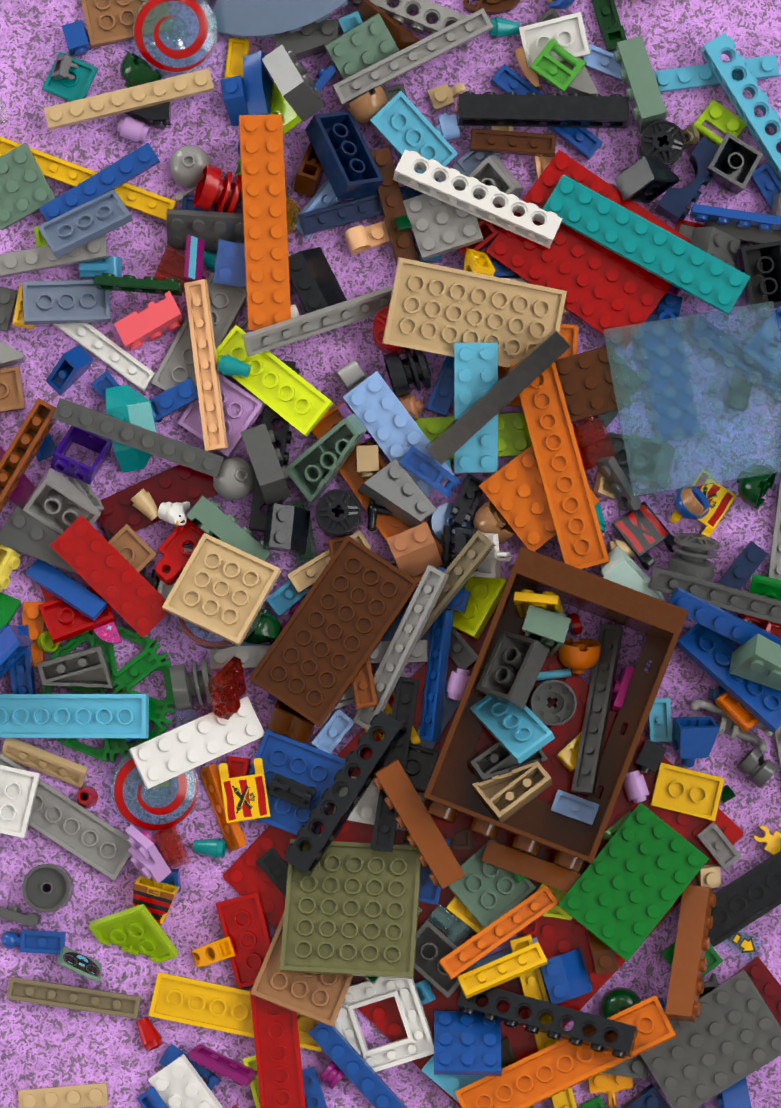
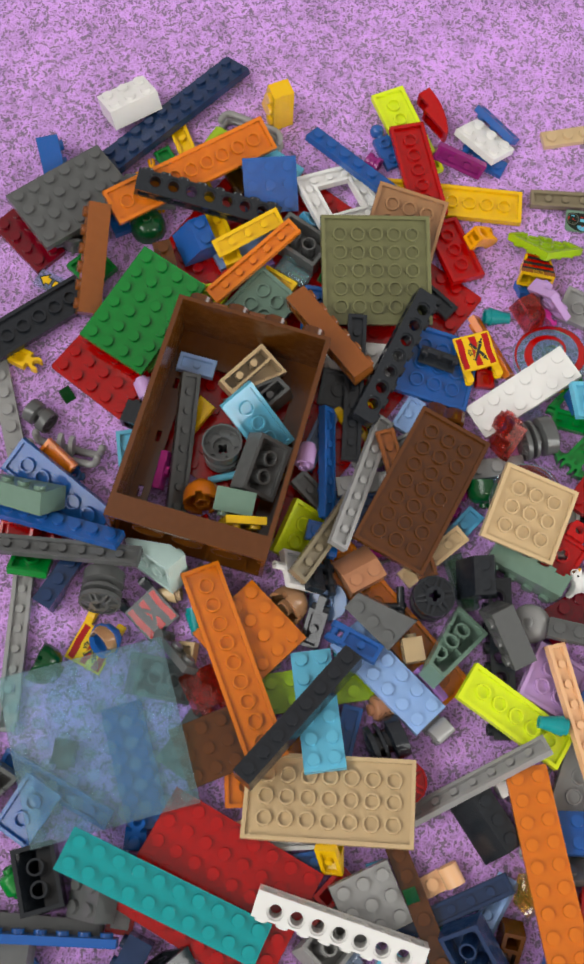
camera: 170 degrees right, 10 degrees down
(148, 1034) = (518, 180): red cone -> none
(687, 791) = (100, 389): yellow plate -> none
(693, 738) = (95, 433): blue torso -> none
(709, 876) = (77, 326): tan plate -> none
(718, 845) = (72, 349): flat silver plate -> none

